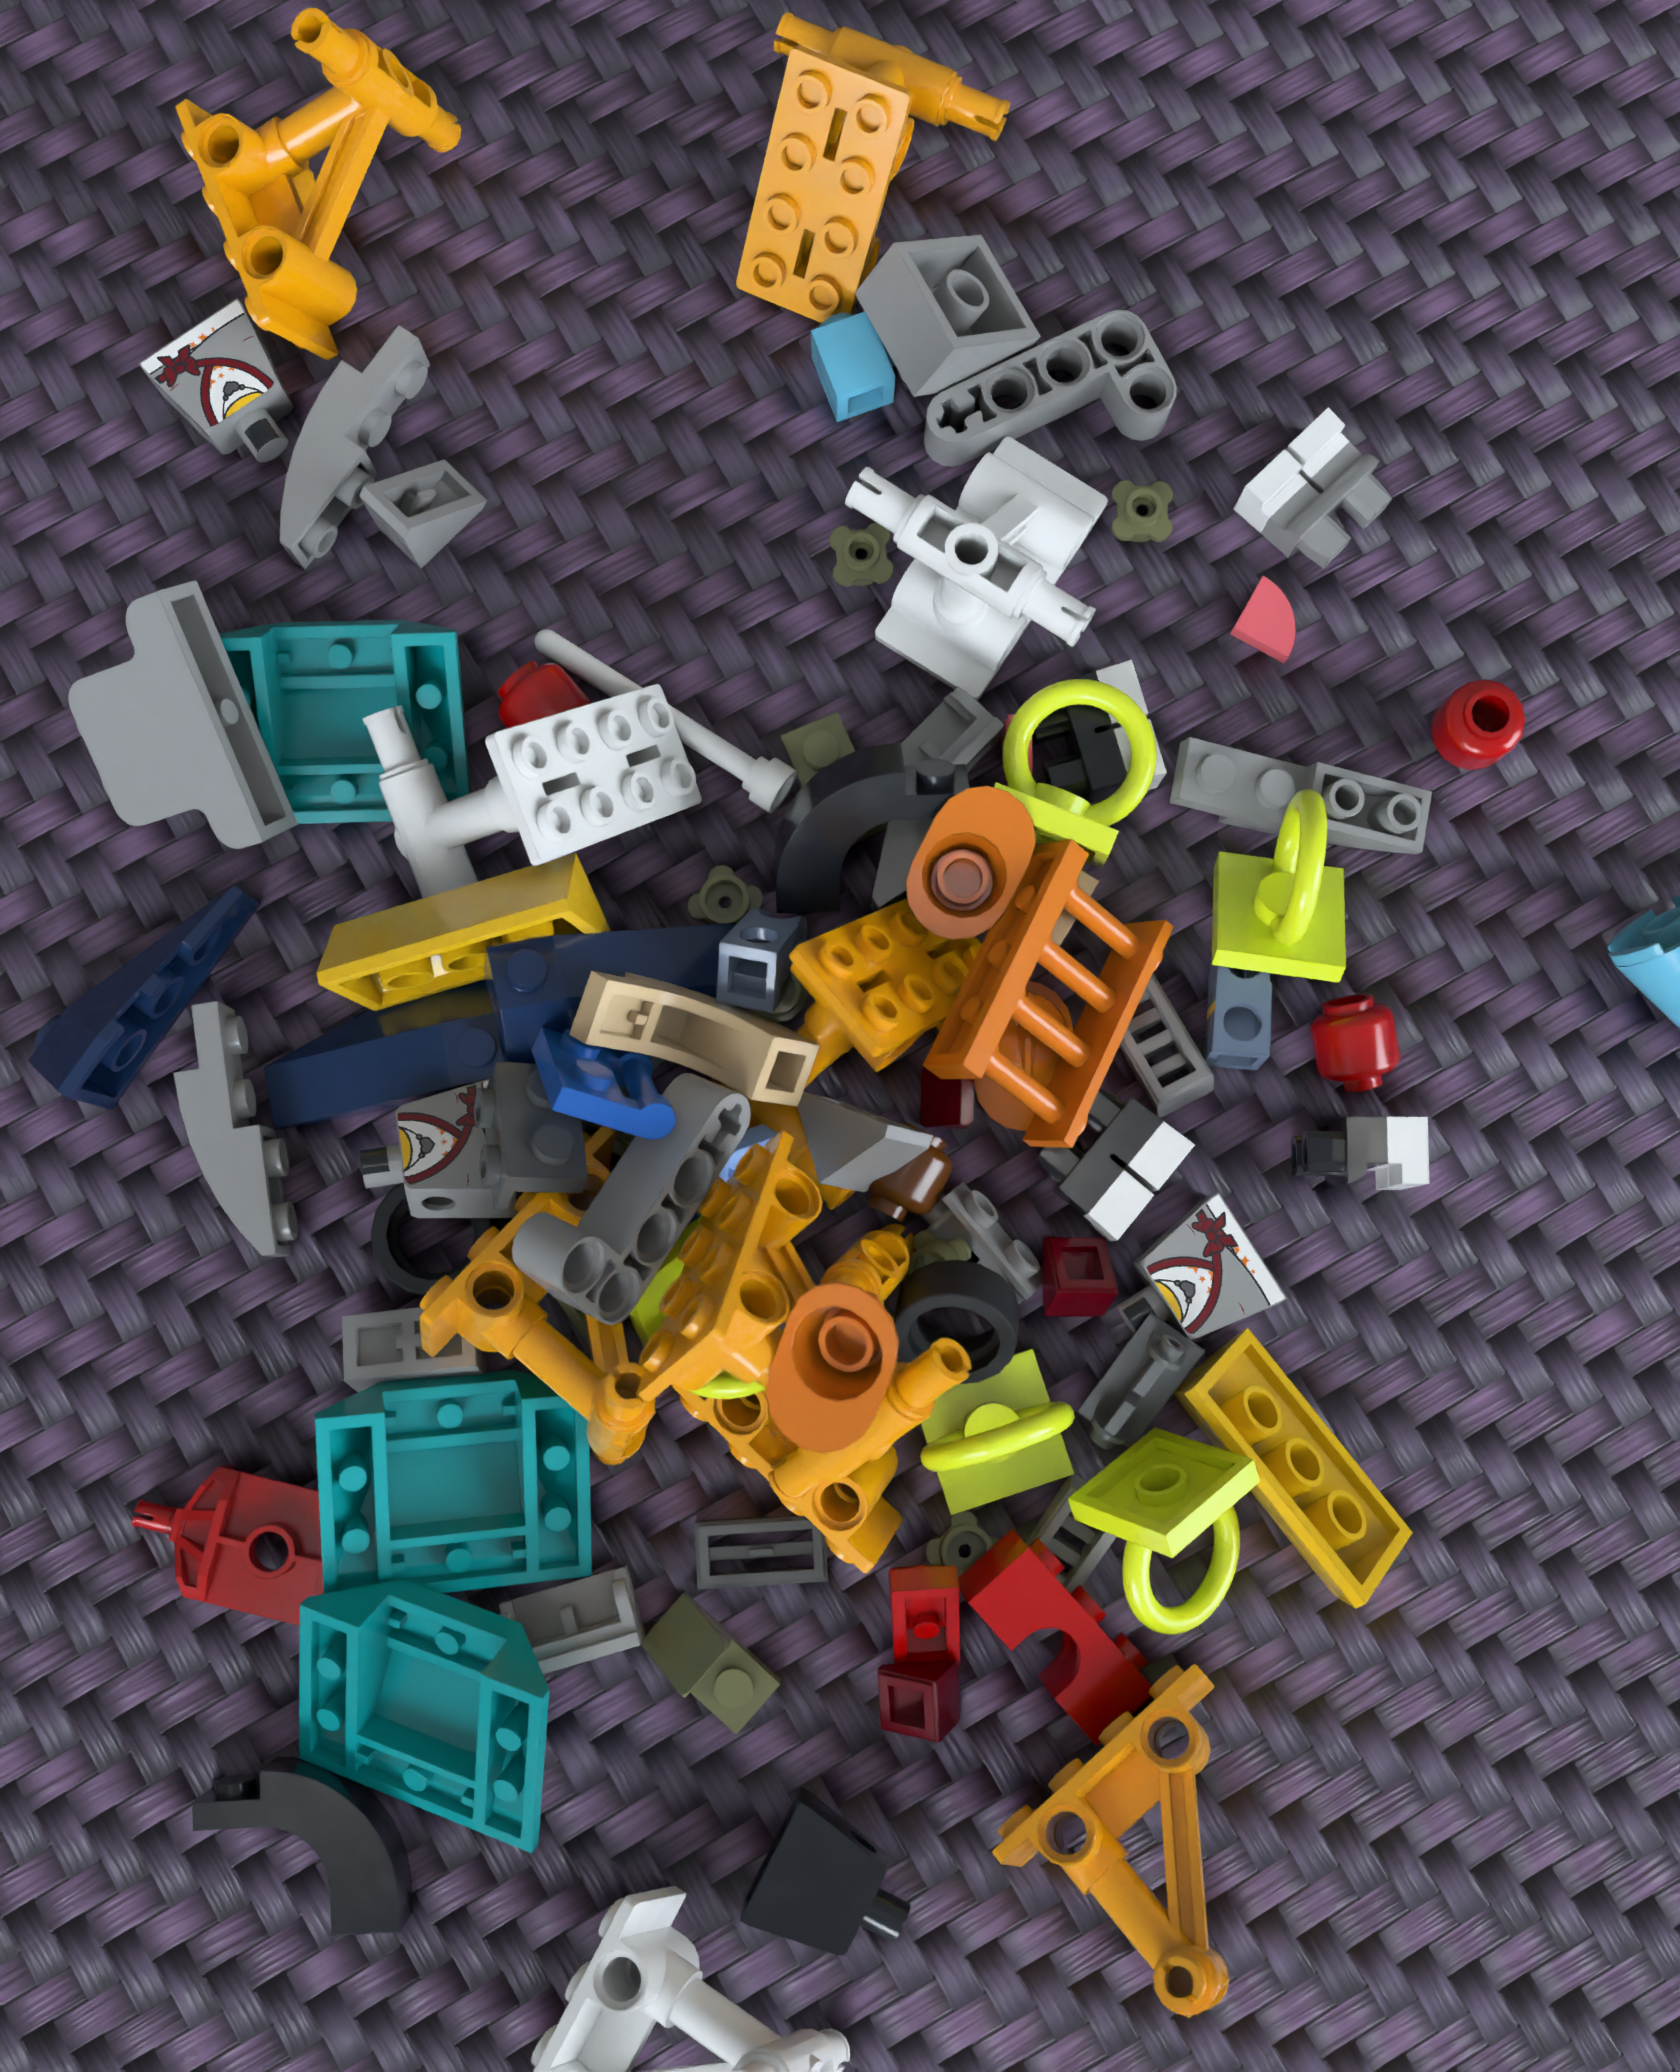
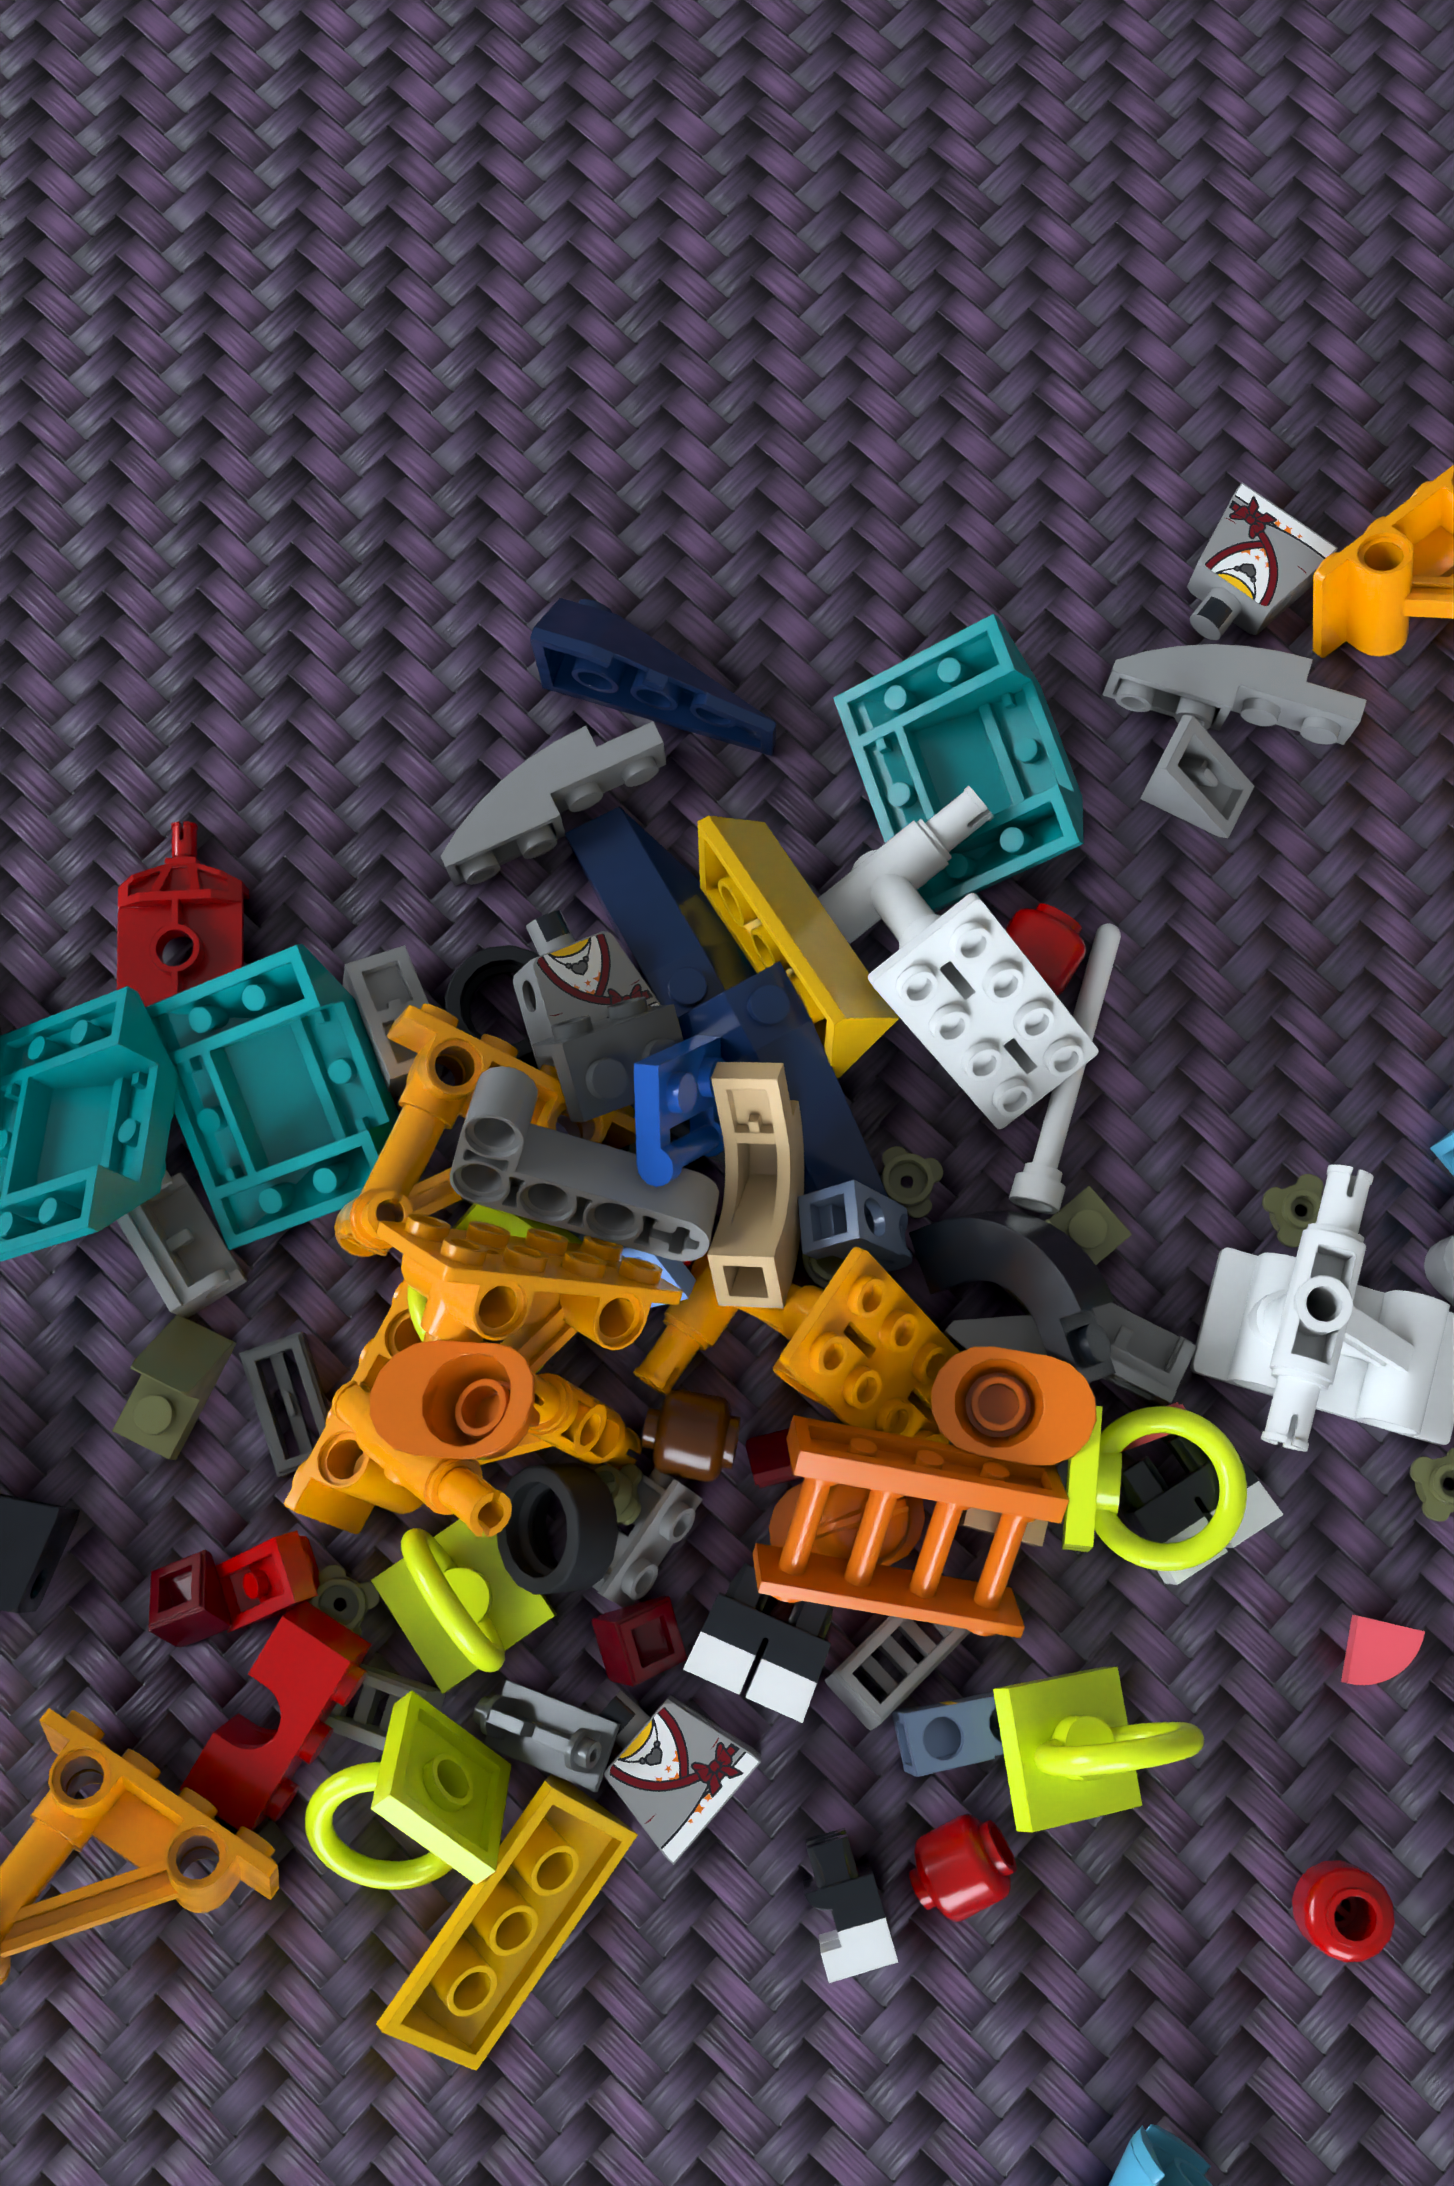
camera: 80 degrees right, 5 degrees down
(177, 727) = (905, 626): light grey brick -> none
(854, 1144) = (703, 1373): light grey slope -> none
(1257, 789) = (1209, 1788): light grey slope -> none

